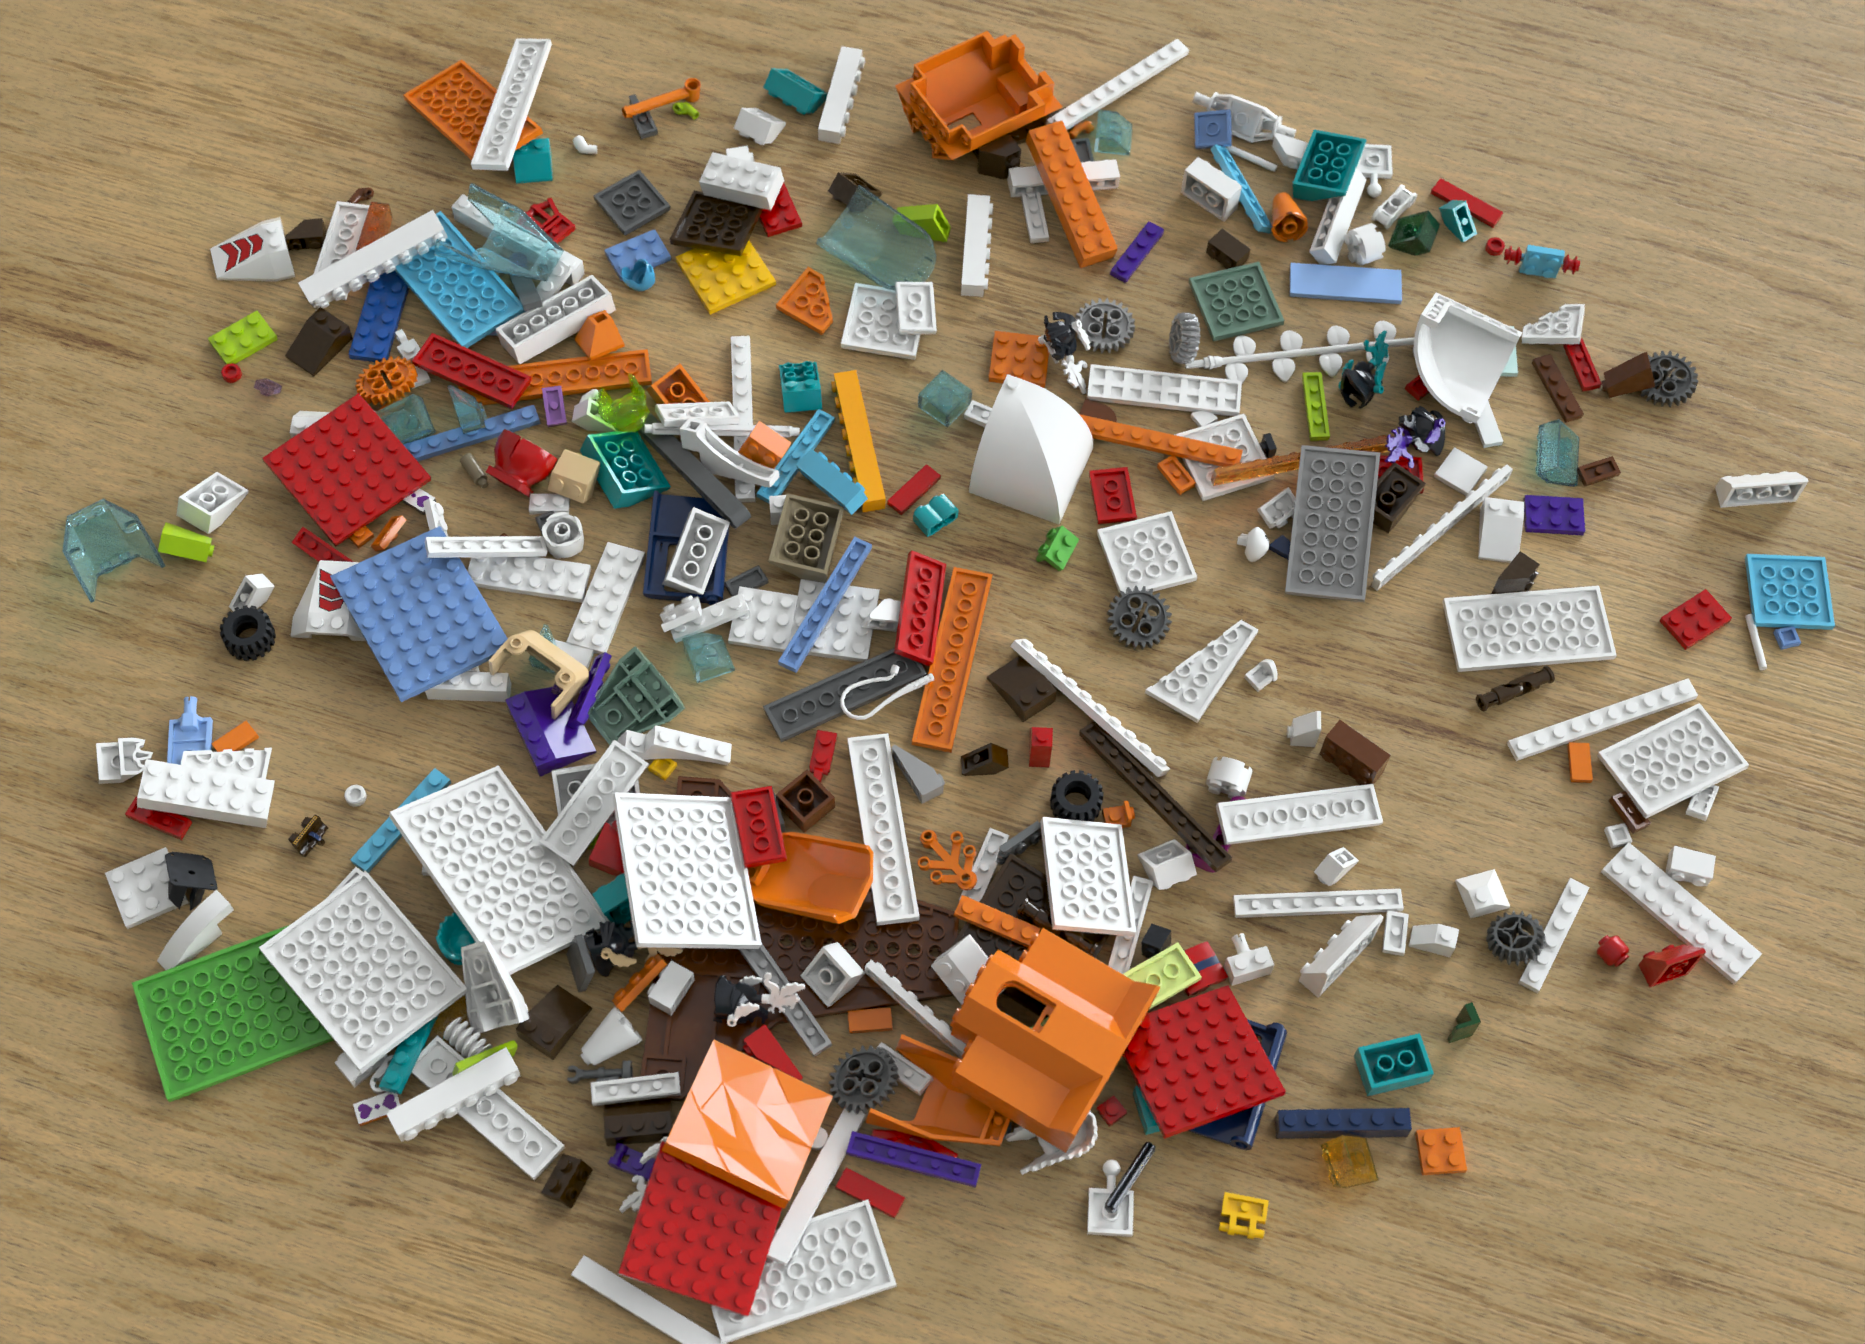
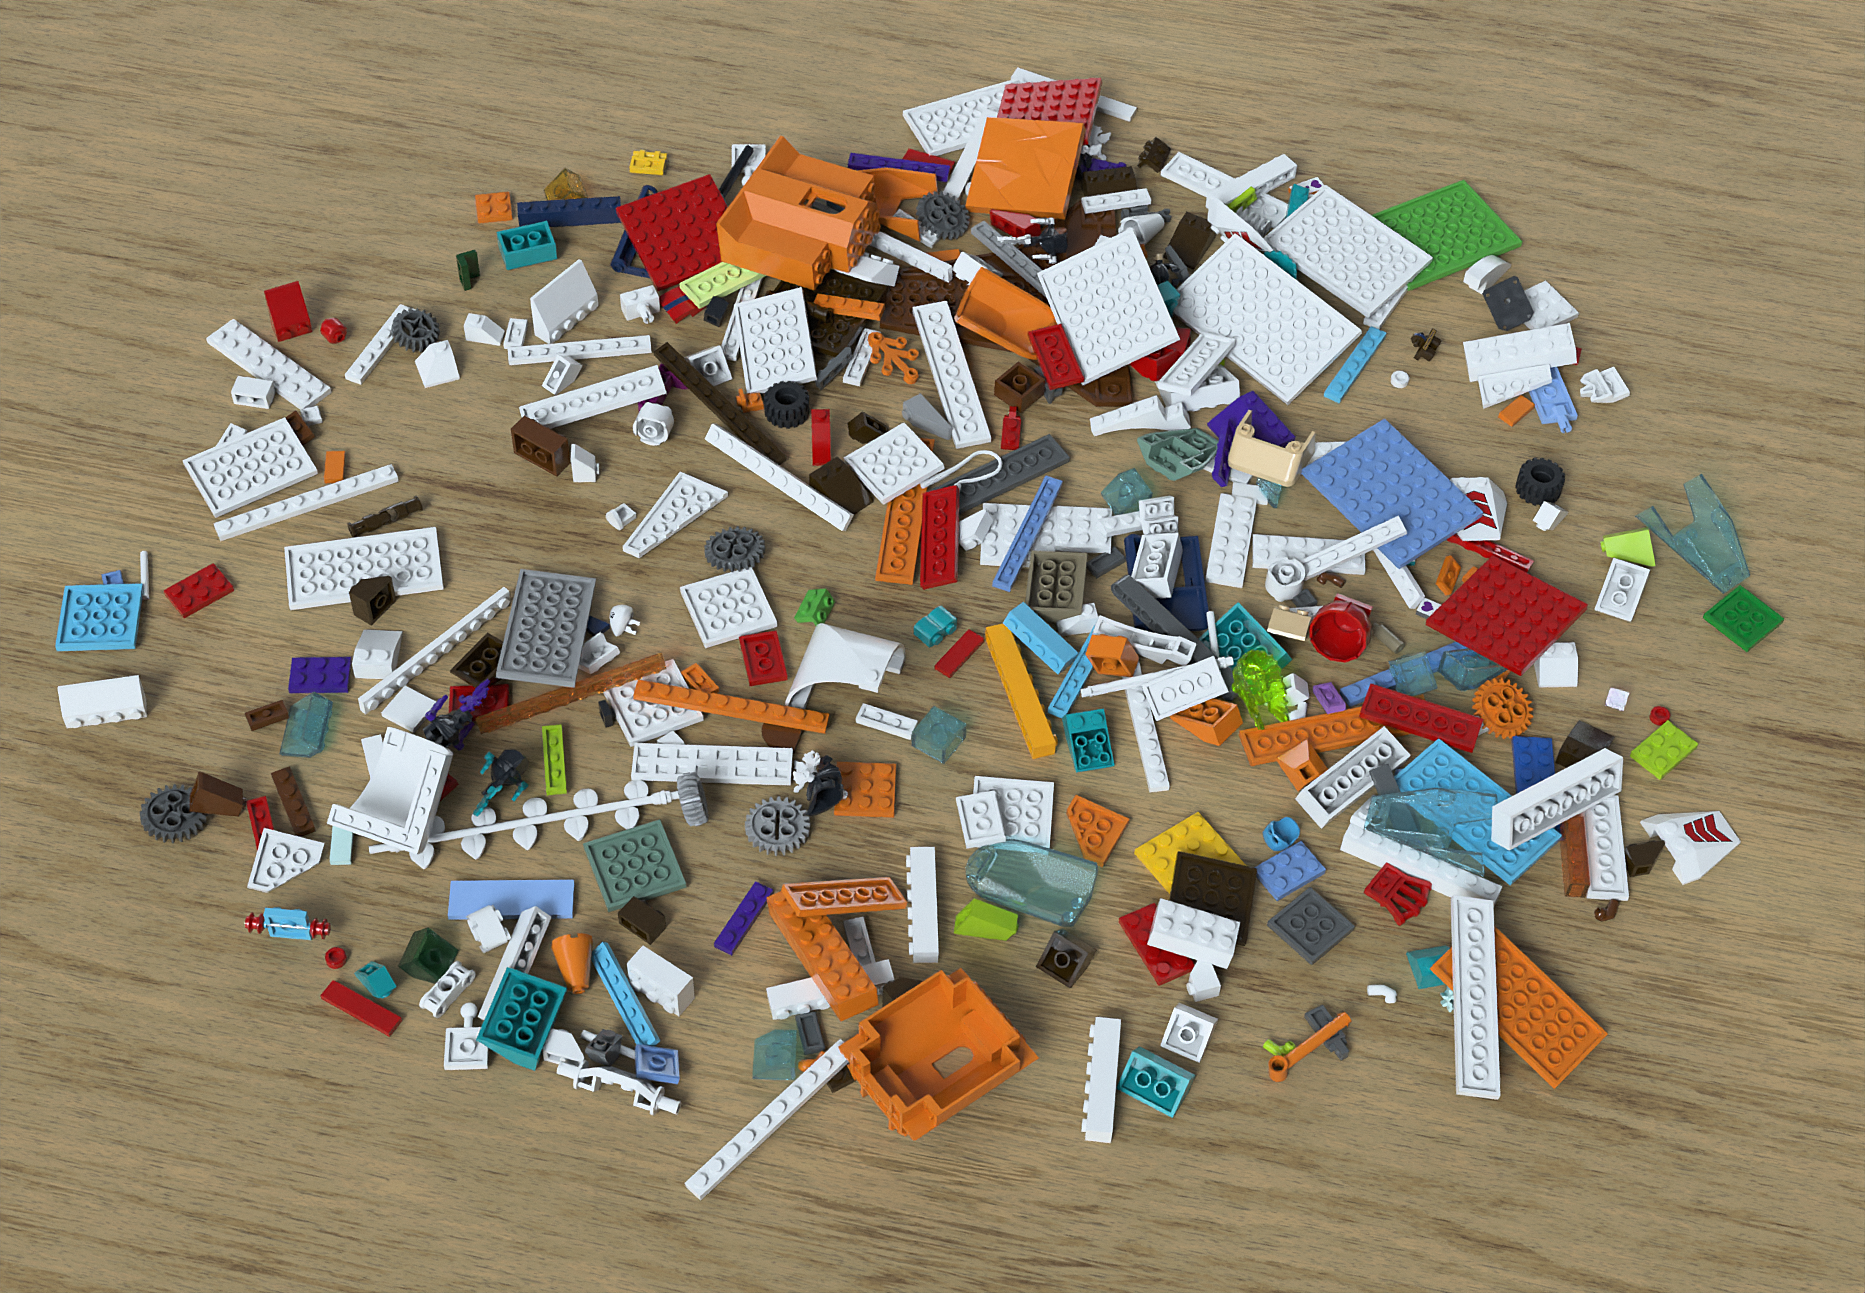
camera: 175 degrees right, 10 degrees down
(99, 463) = (1743, 618): none -> green plate
(406, 348) = (1493, 750): white plate -> none
(654, 475) = (1212, 633): none -> white bar
(961, 702) = (893, 463): none -> white plate
(1048, 234) = (843, 896): none -> orange plate
(1259, 136) = (605, 1047): none -> dark grey slope

